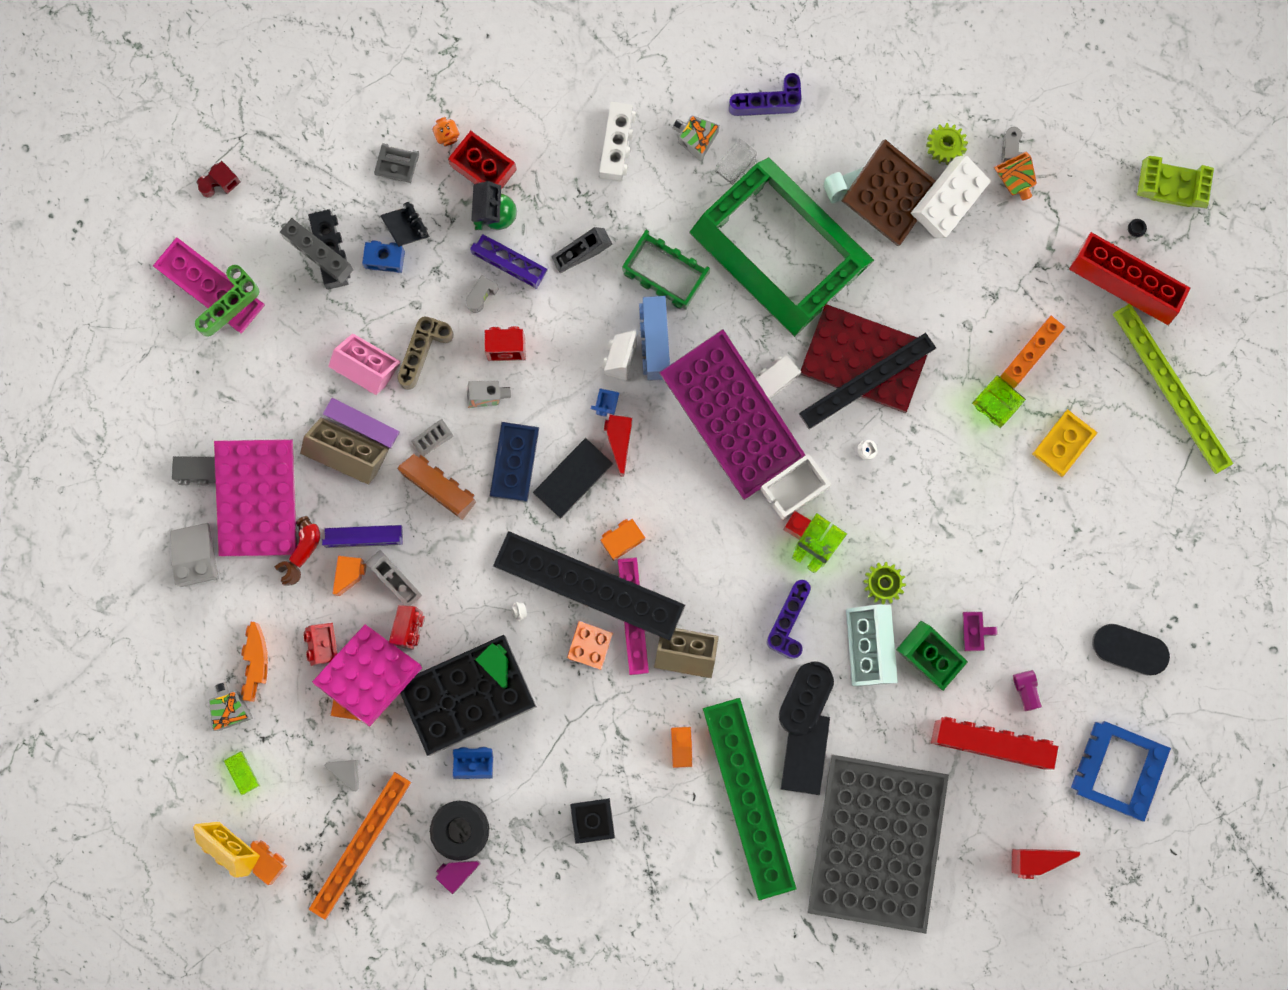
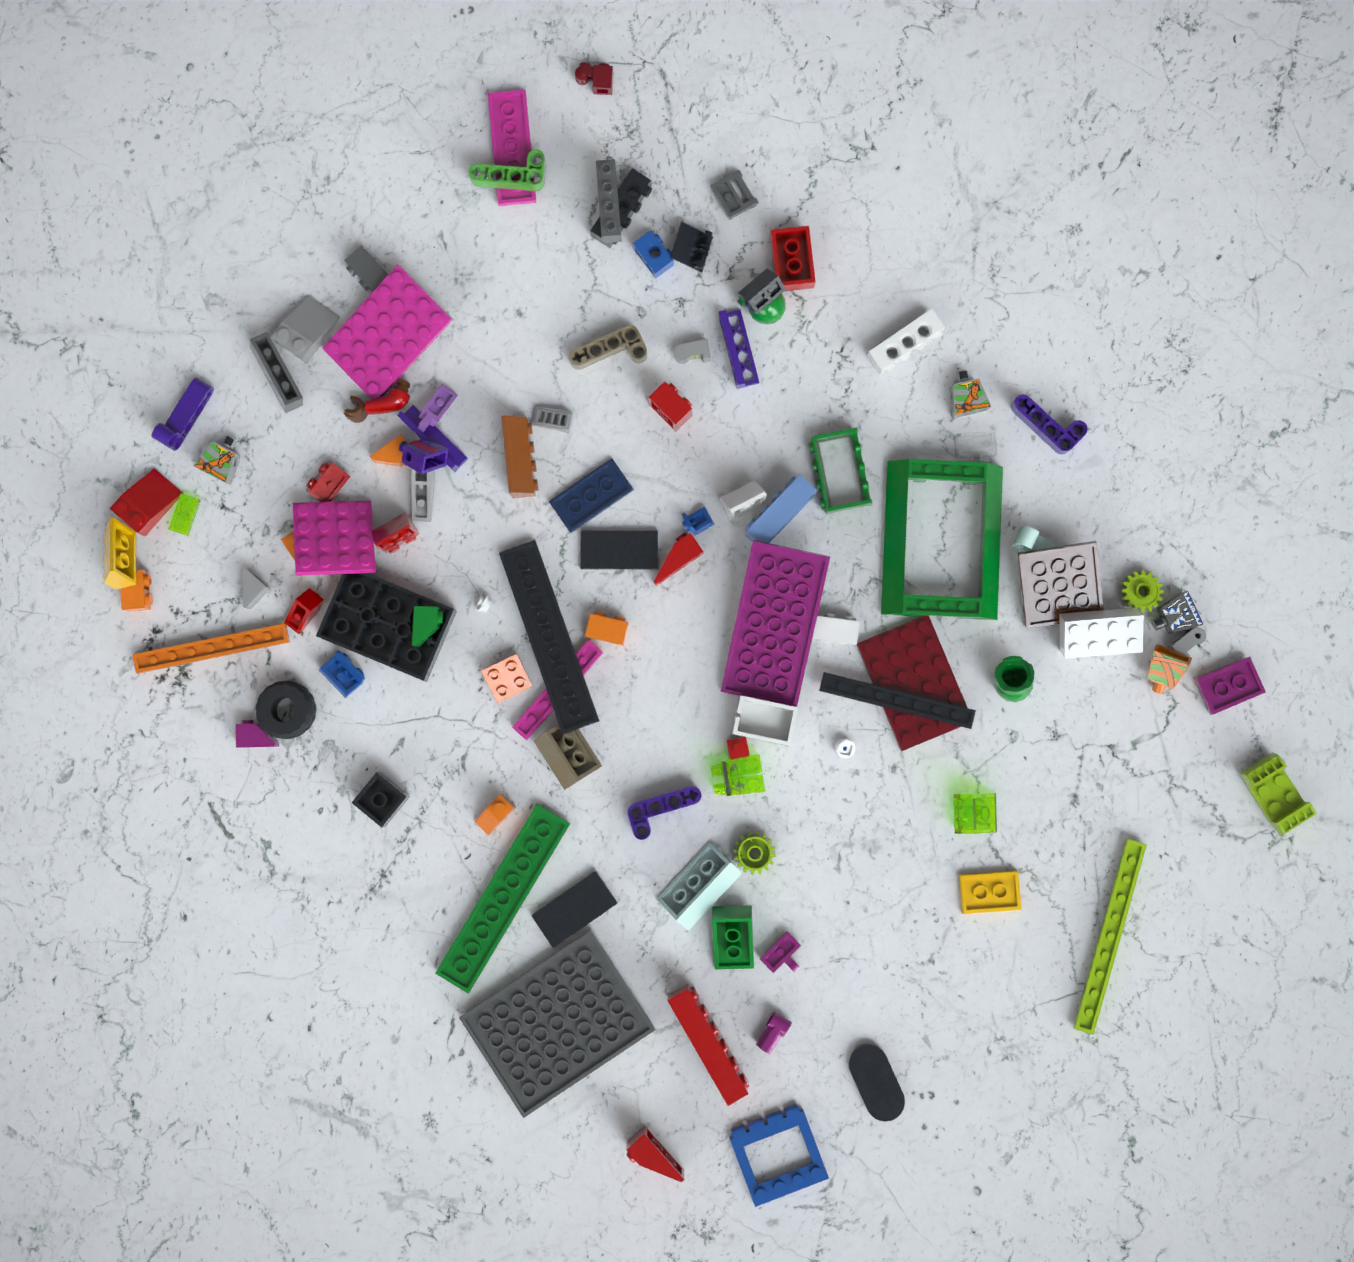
camera: 50 degrees right, 5 degrees up
(168, 702) = (183, 415): none -> dark purple beam
(204, 605) = (276, 372): none -> dark grey brick
(205, 792) = (146, 502): none -> red slope
(256, 653) = (277, 443): orange slope -> none
(343, 450) = (482, 364): dark tan slope -> none
(343, 512) = (436, 407): none -> medium lavender hinge
(361, 423) = (515, 356): medium lavender tile -> none
(363, 363) = (560, 316): bright pink slope -> none
(370, 552) = (423, 455): none -> dark purple torso
(398, 749) = (303, 610): none -> red slope
(446, 131) = (792, 208): orange head -> none
(478, 393) = (616, 420): light grey torso -> none
(582, 249) = (798, 394): black slope -> none
(806, 698) = (614, 873): black tile -> none
(928, 284) = (1014, 679): none -> green tile
(986, 134) = (1177, 614): none -> torso
(1032, 351) = (1037, 804): orange brick -> none
(1069, 145) = (1230, 685): none -> magenta plate
(1130, 278) = (1165, 827): red brick -> none
(1137, 228) = (1213, 796): black plate -> none

